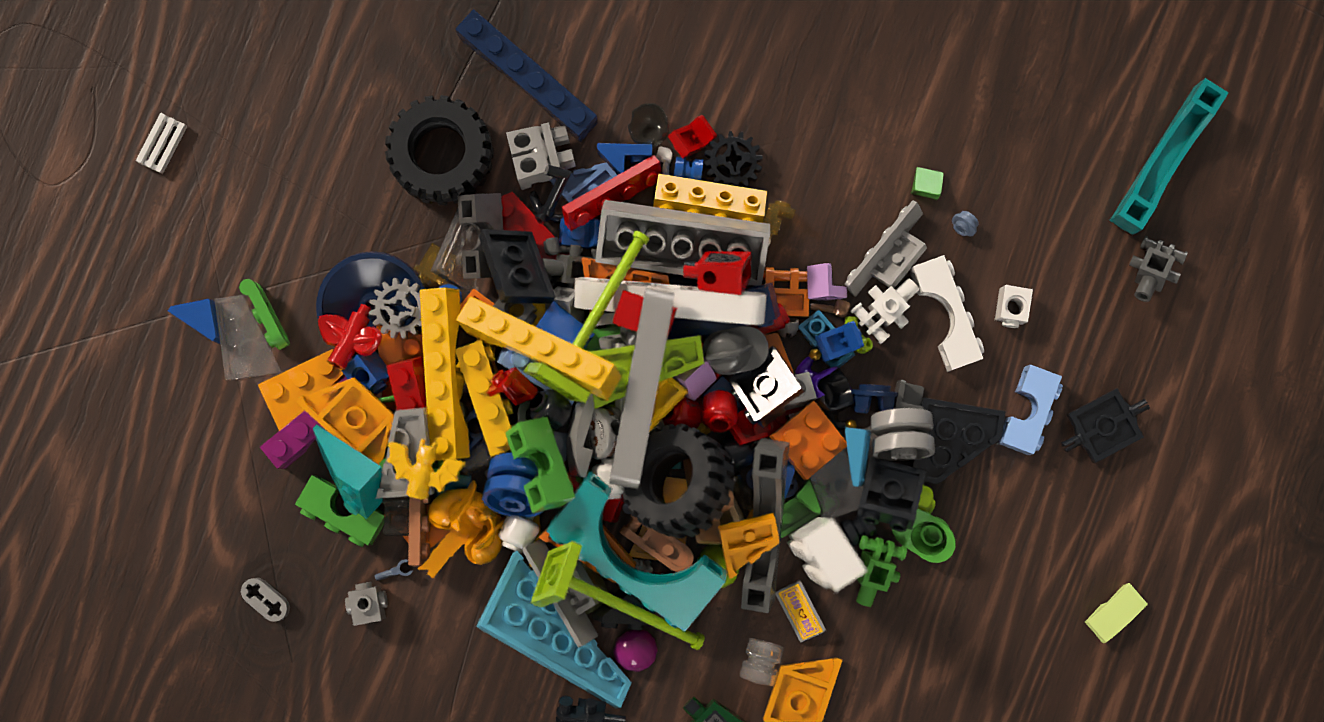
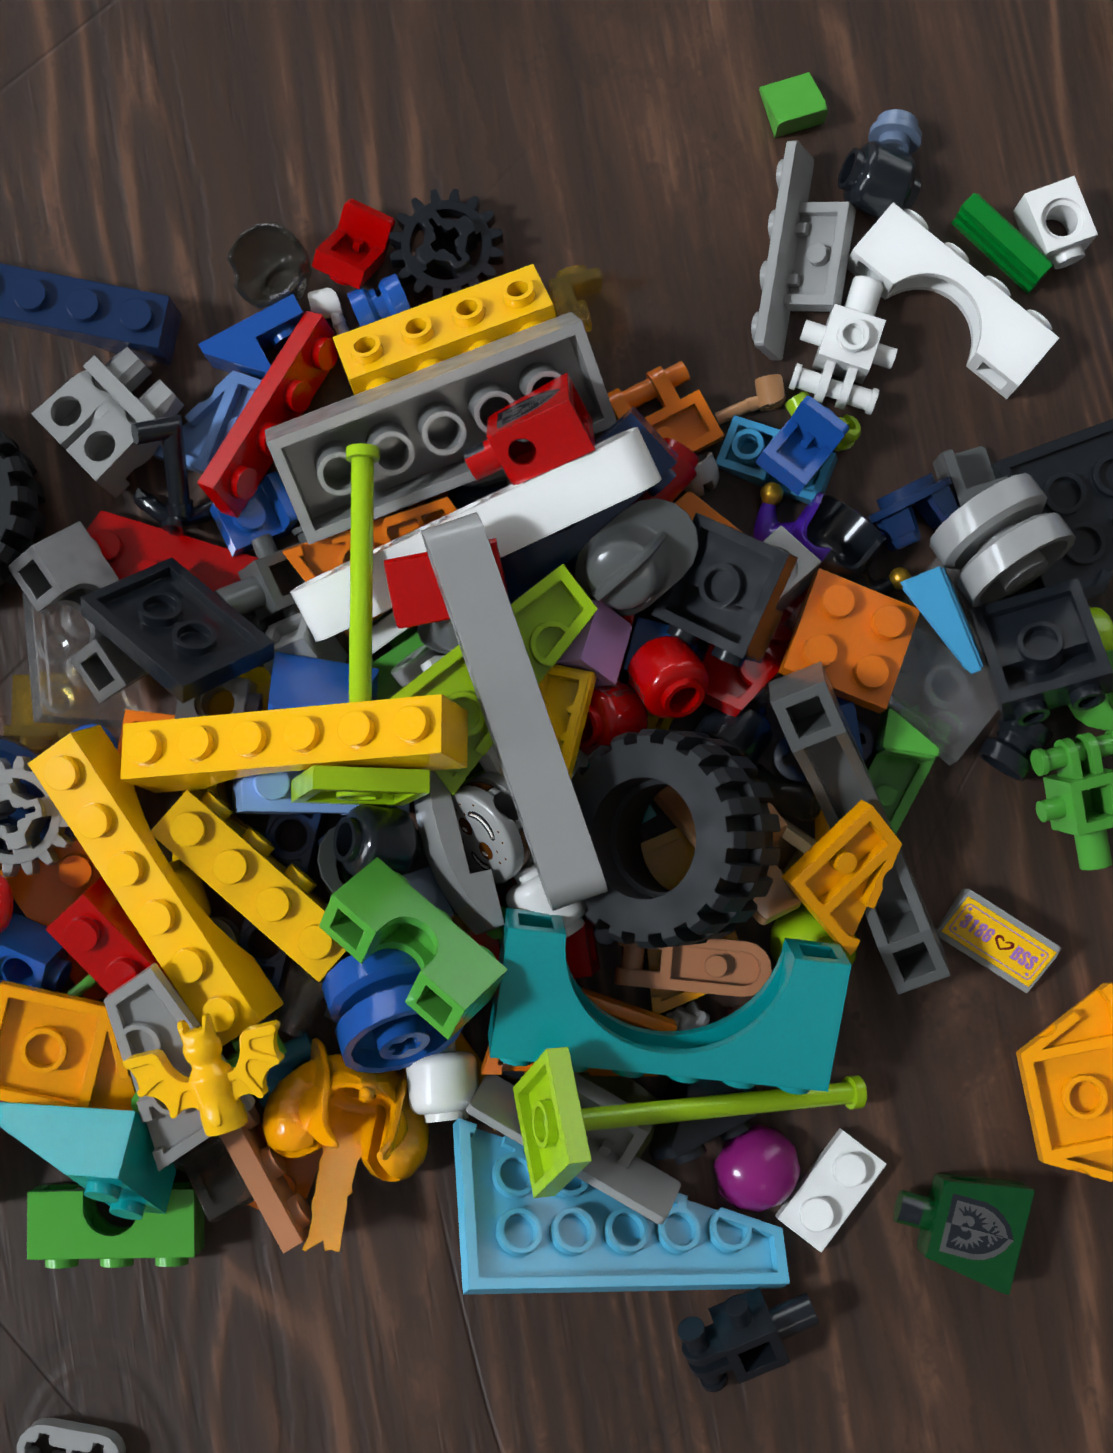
camera: 25 degrees left, 0 degrees up
(359, 610) = (256, 1376): light grey brick -> none
(392, 572) = (266, 1274): sand blue hand -> none
(513, 385) = (287, 836): red bracket -> none
(553, 247) = (224, 565): dark grey hand -> none
(662, 678) = (830, 1190): none -> white plate
(761, 662) = (983, 1065): clear wheel -> none
(820, 283) = (715, 368): lavender panel -> none
(826, 553) = (1004, 814): white brick -> none
(945, 240) = (878, 177): none -> black head
(984, 300) = (1001, 243): none -> green tile

